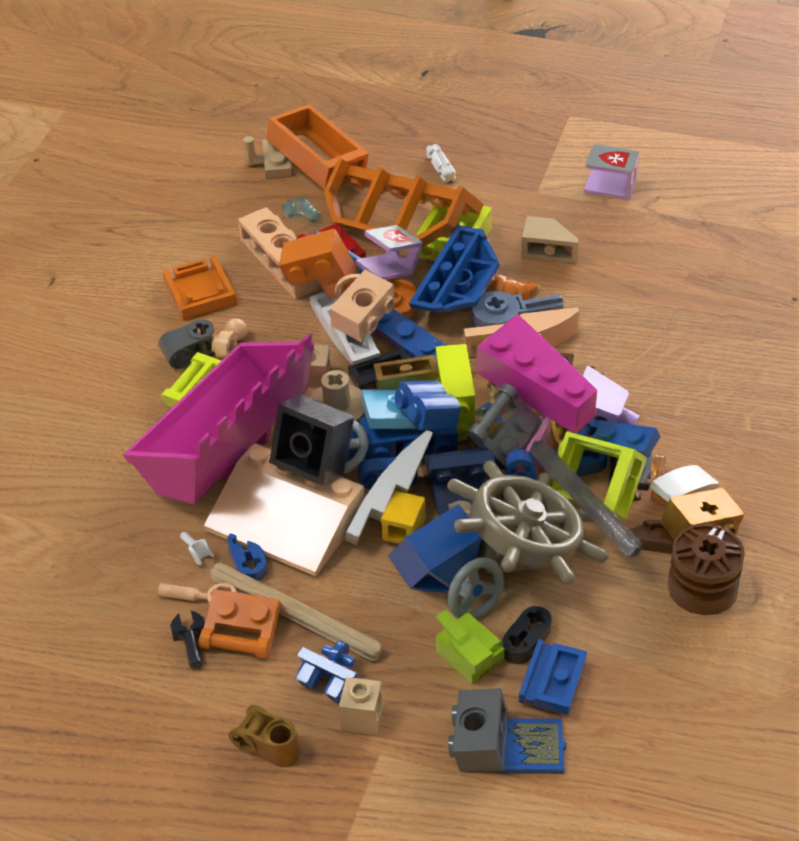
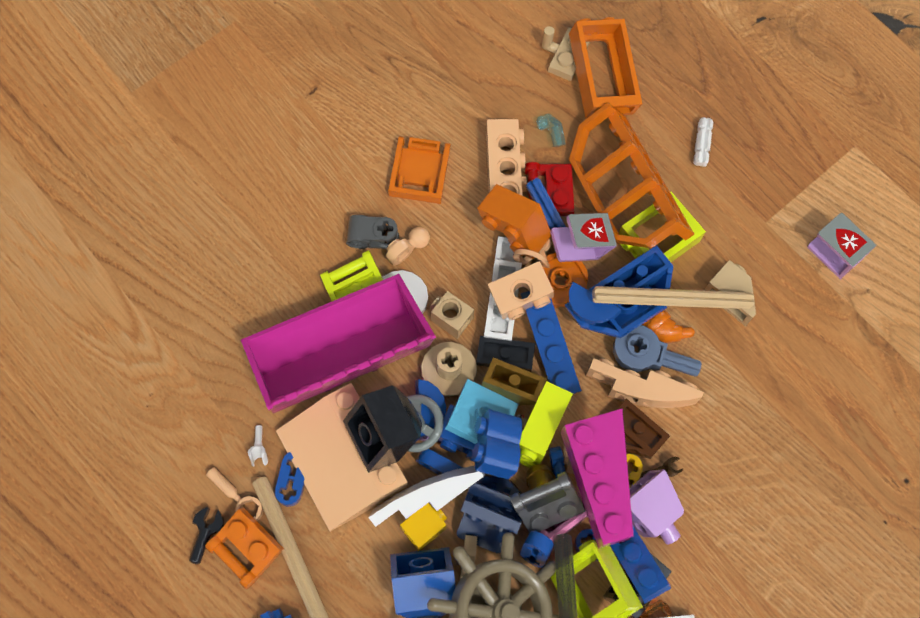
camera: 25 degrees right, 25 degrees up
(434, 288) = (587, 310): none -> blue tile
(498, 250) = (672, 297): none -> tan axle

